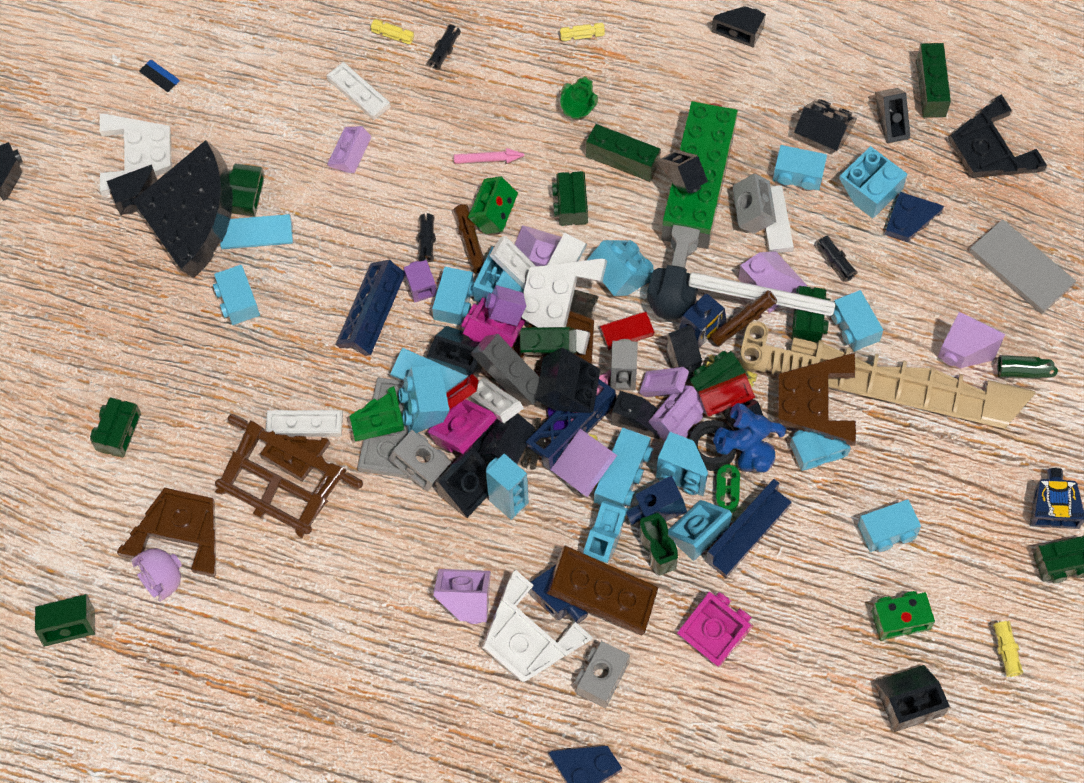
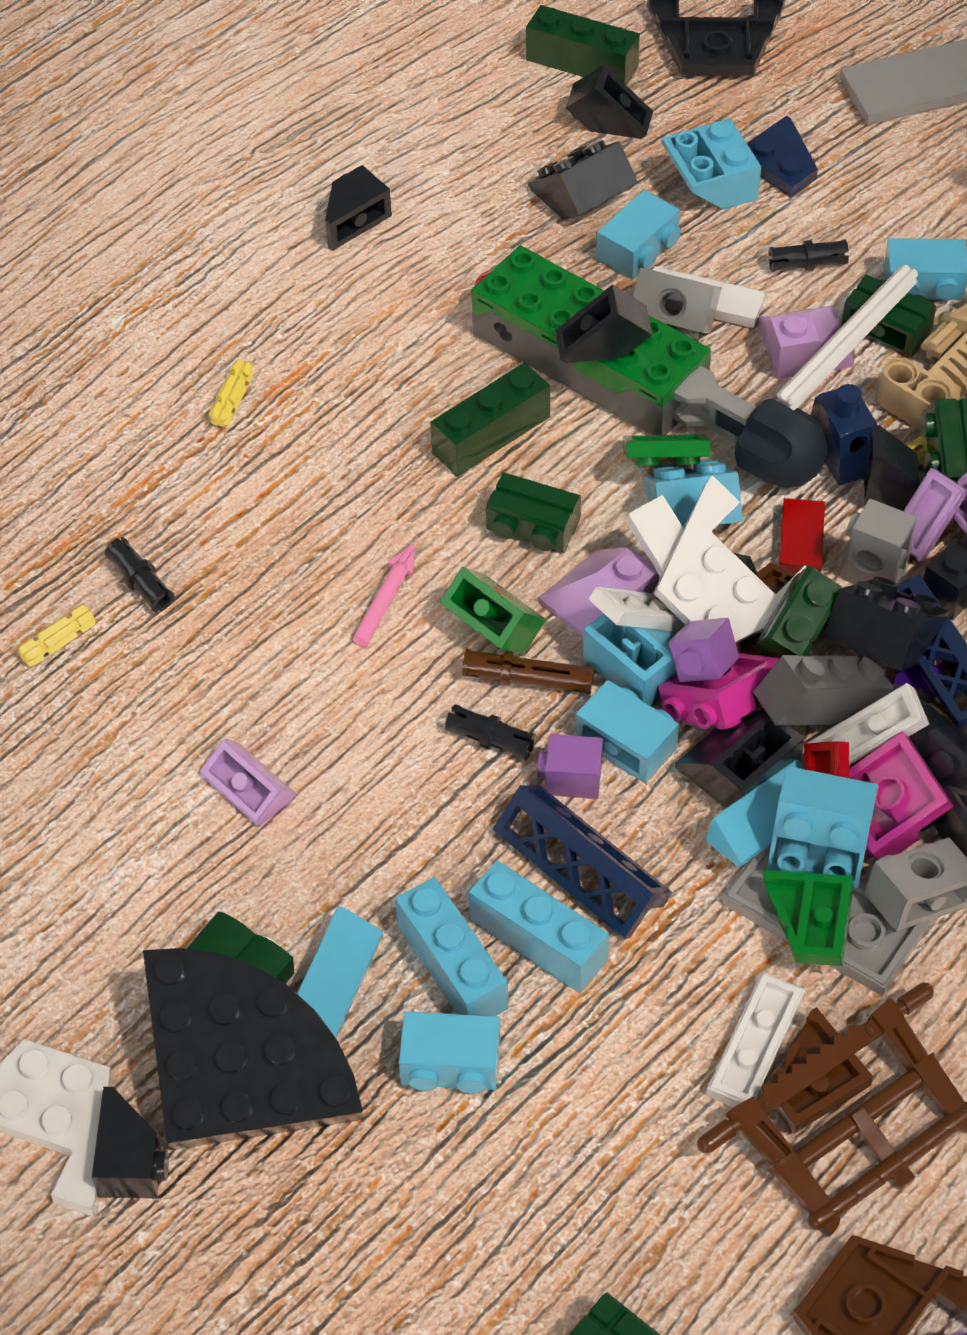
camera: 65 degrees left, 10 degrees down
(287, 272) = (451, 951): none -> medium azure brick
(319, 302) = (538, 926): none -> medium azure brick
(358, 91) = (140, 727): white tile -> none
(578, 99) = (361, 435): green hair -> none
(643, 239) = (684, 448): none -> green plate
(751, 312) = (871, 364): reddish brown pin -> none

